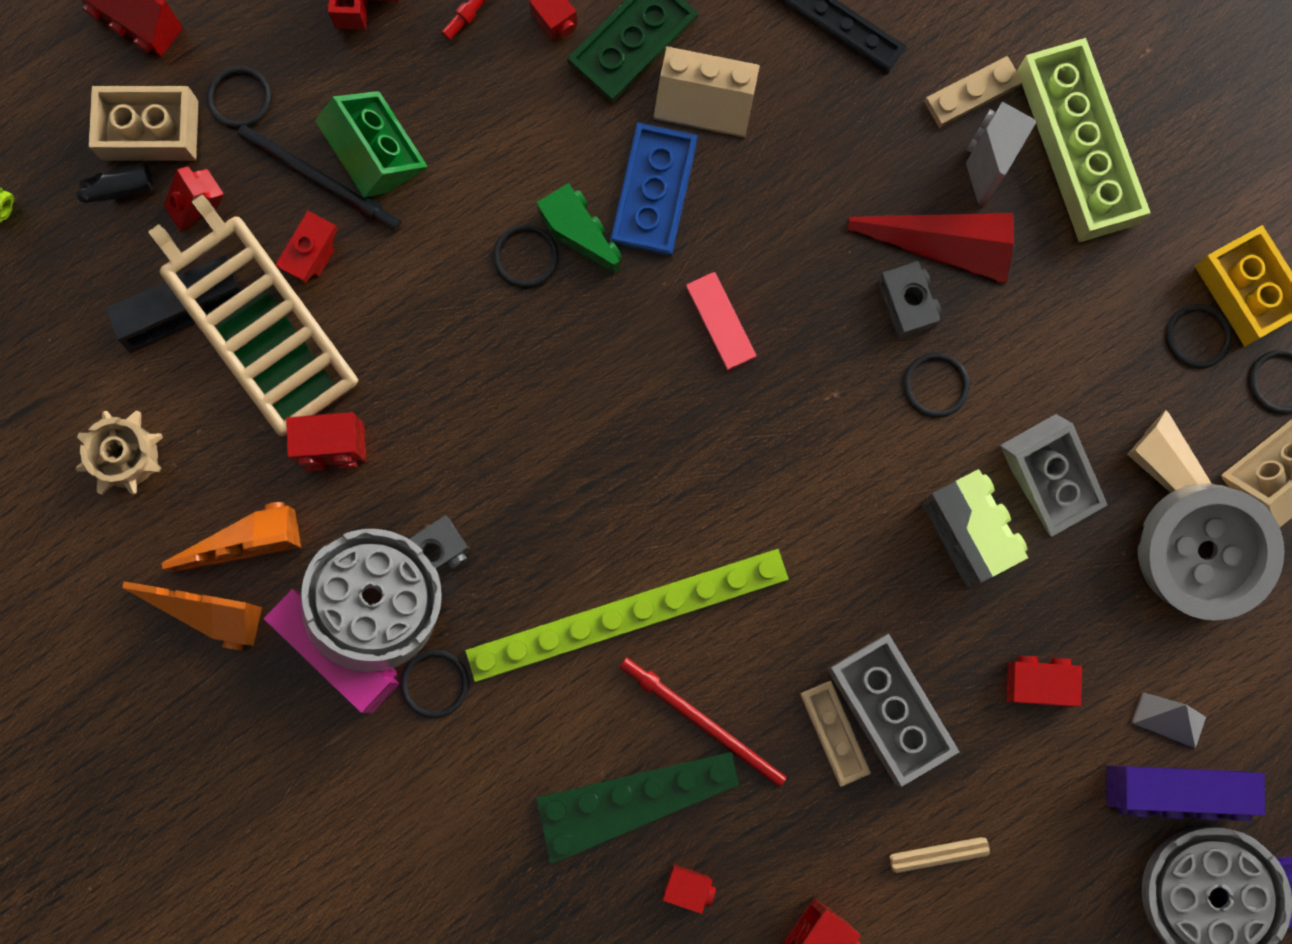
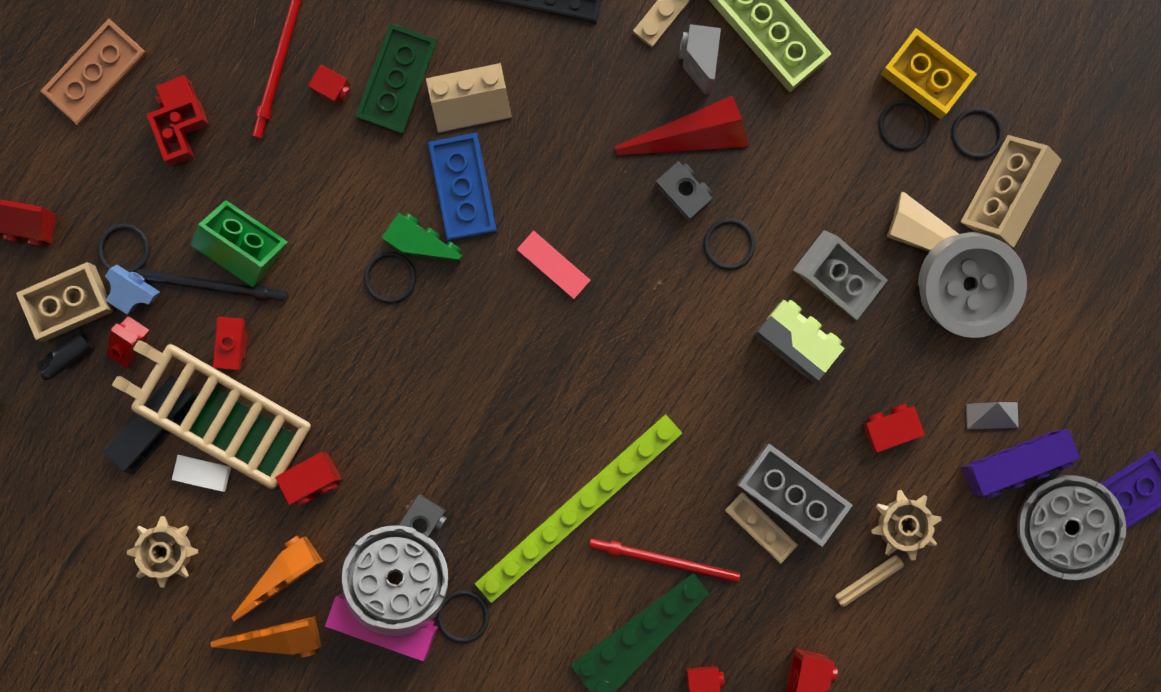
camera: 20 degrees left, 5 degrees up
(207, 383) = (201, 473): none -> white slope
(221, 140) = (128, 289): none -> medium blue brick
(1031, 810) = (919, 519): none -> tan brick

